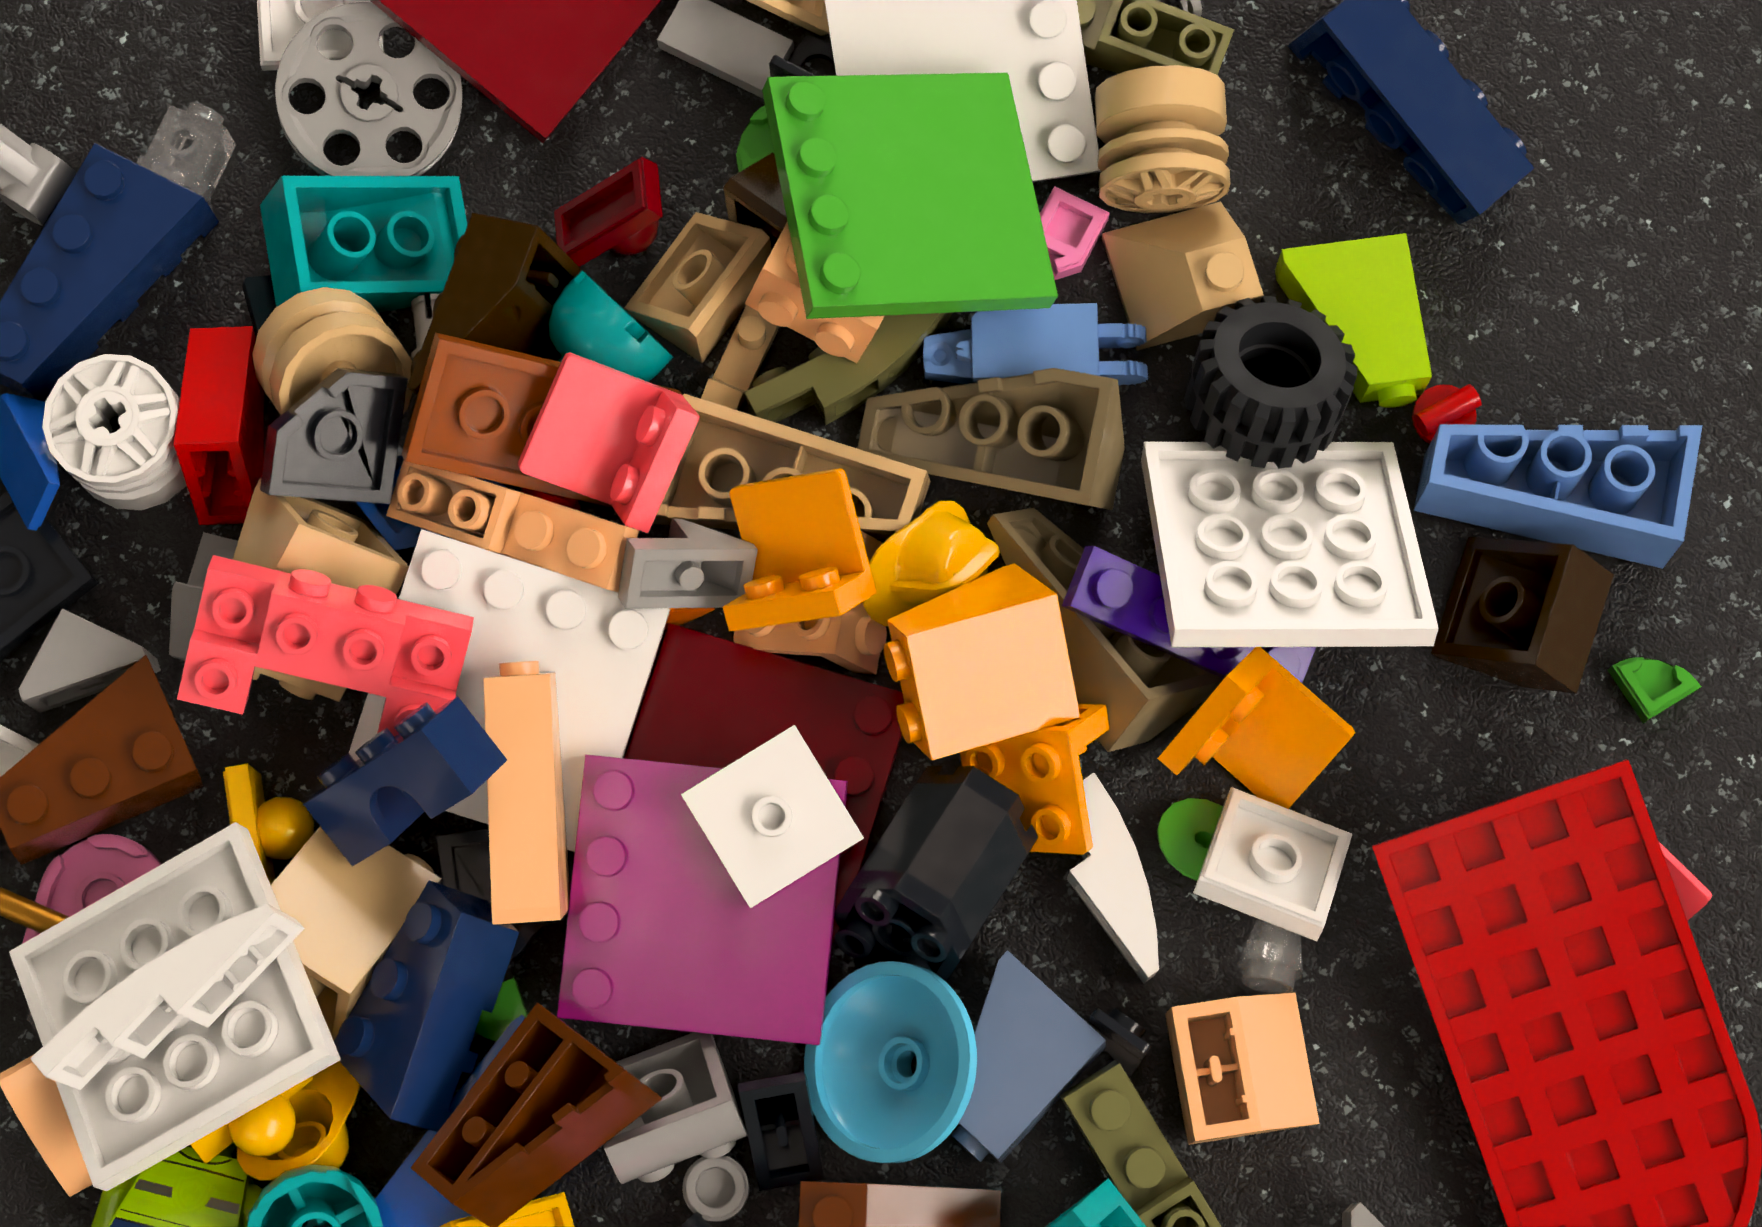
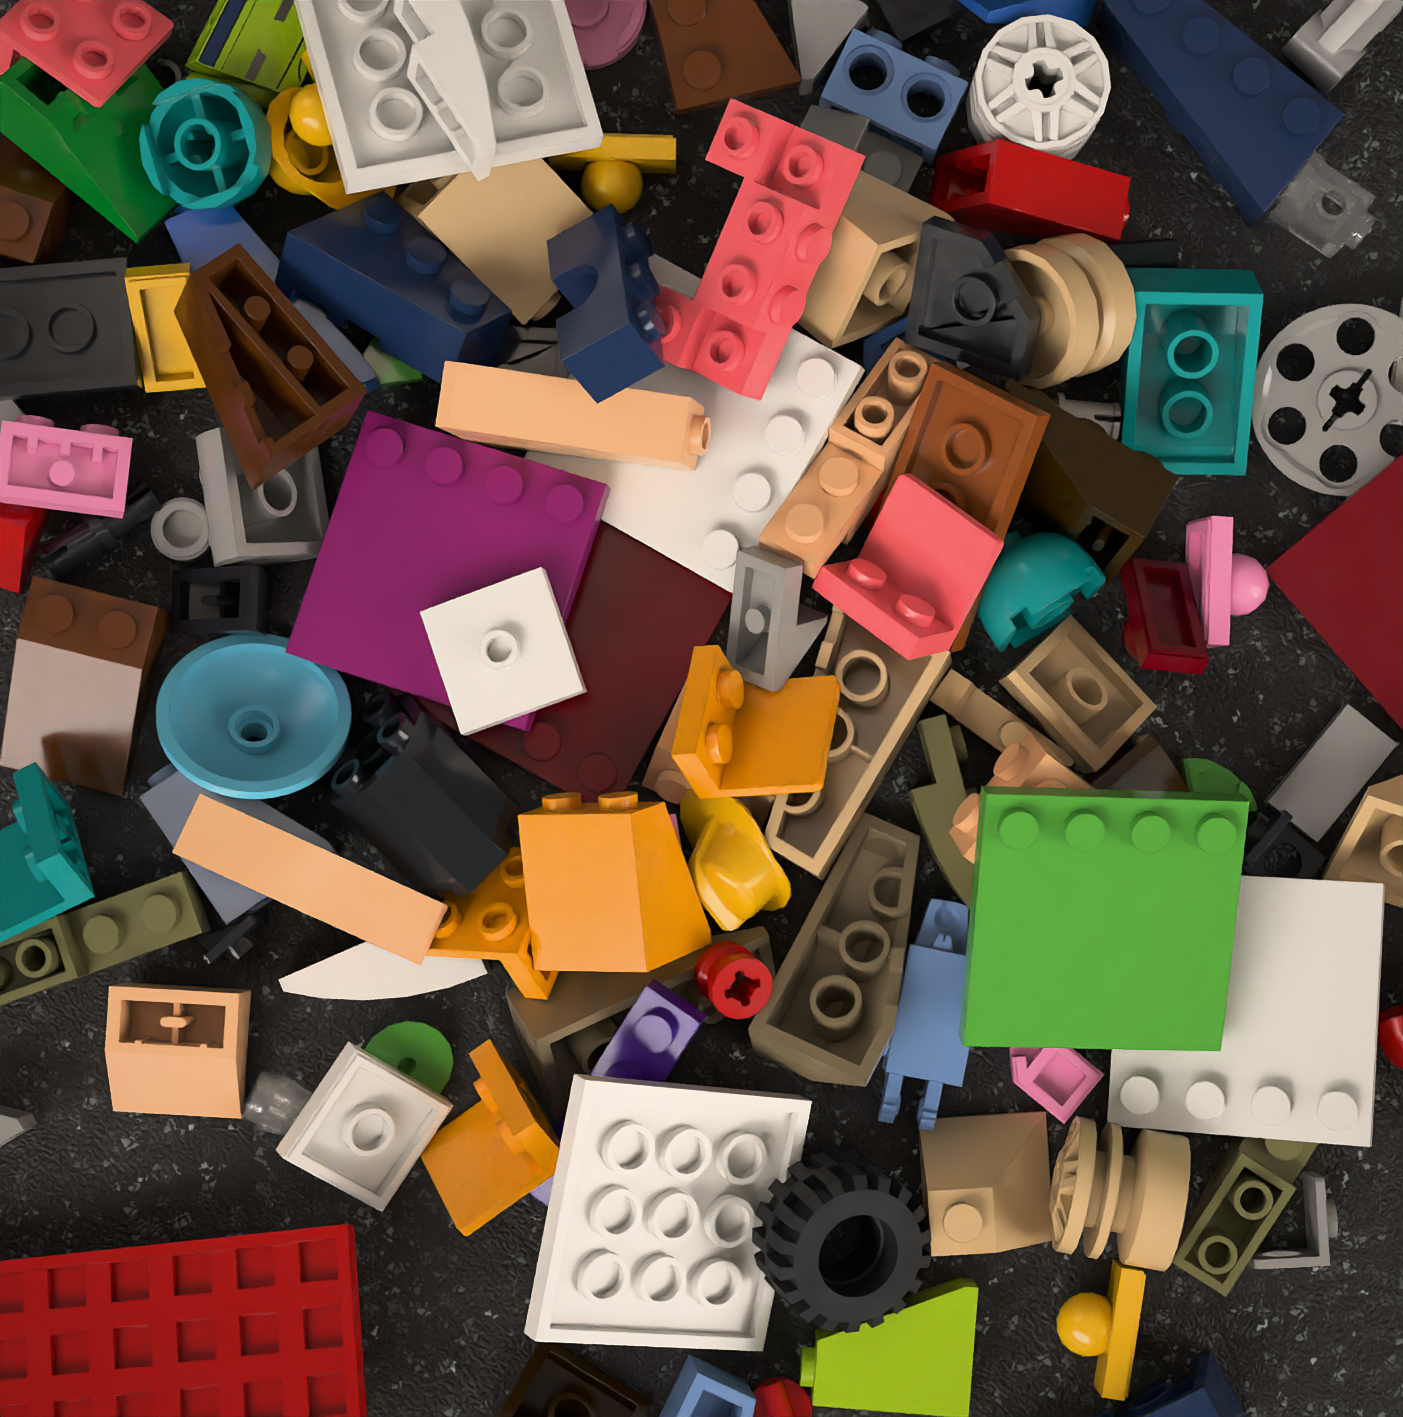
camera: 100 degrees right, 10 degrees up
(155, 573) = (888, 103): none -> medium blue brick
(560, 173) = (1221, 580): none -> bright pink tile
(1040, 961) = (310, 879): none -> light nougat slope
(1045, 531) = (719, 969): none -> red wheel
(1290, 131) = (1106, 1328): none -> yellow tile

